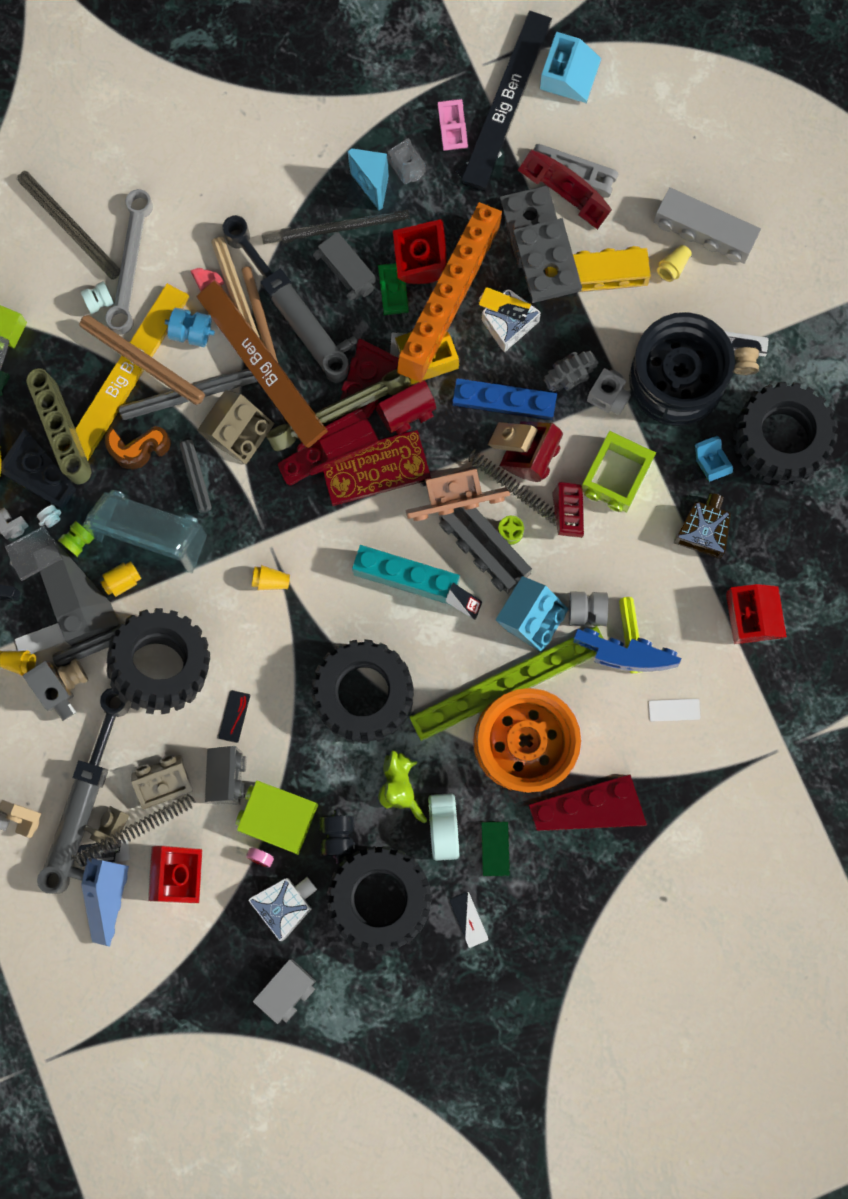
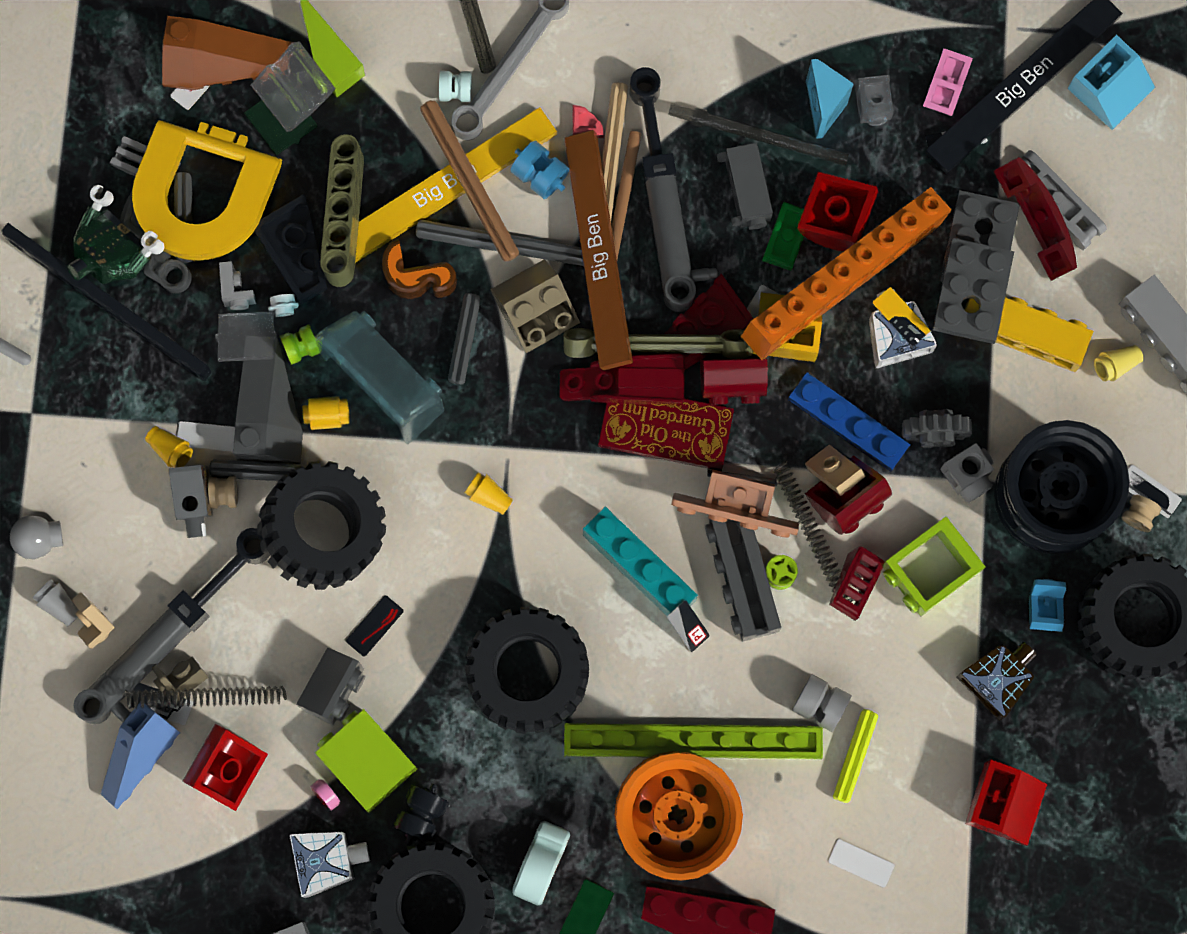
camera: 20 degrees right, 0 degrees up
(160, 781) = (260, 657): dark tan bracket -> none
(397, 790) = (512, 796): lime animal -> none
(532, 613) = (757, 677): medium azure slope -> none
(638, 656) = (847, 784): blue slope -> none

